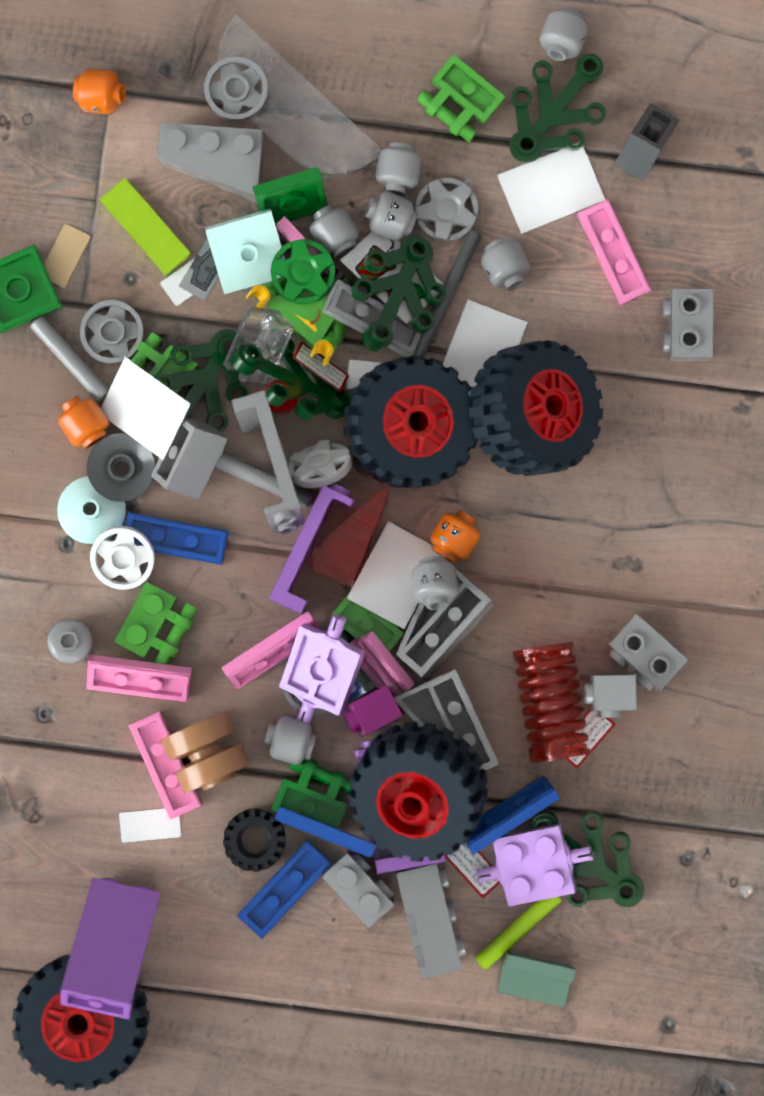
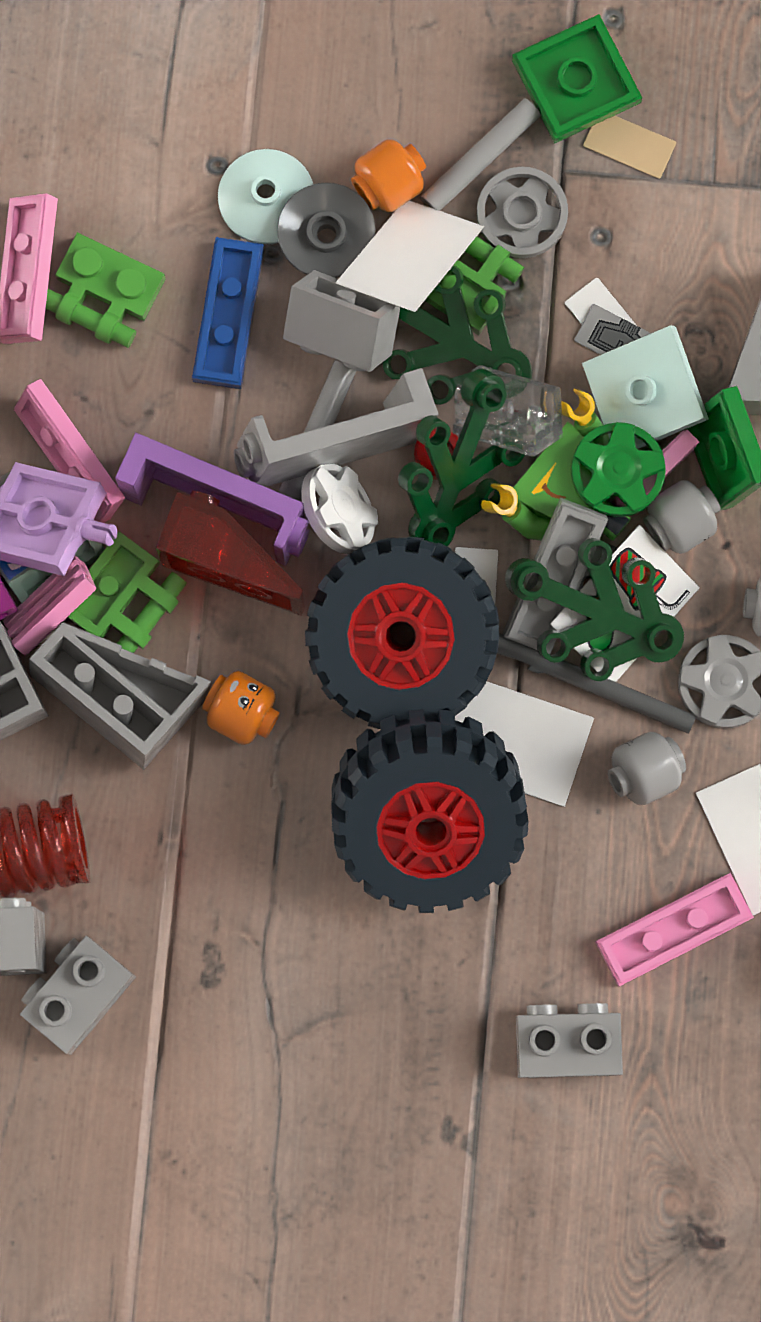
camera: 85 degrees right, 5 degrees down
(70, 641) = (74, 170): light grey head -> none
(122, 557) = (197, 238): white wheel -> none
(145, 227) = (676, 252): lime tile -> none
(331, 374) = (472, 519): white sticker -> none
(386, 577) = (182, 622): white sticker -> none
(391, 216) = (709, 598): light grey head -> none
(434, 582) = (165, 670): light grey head -> none

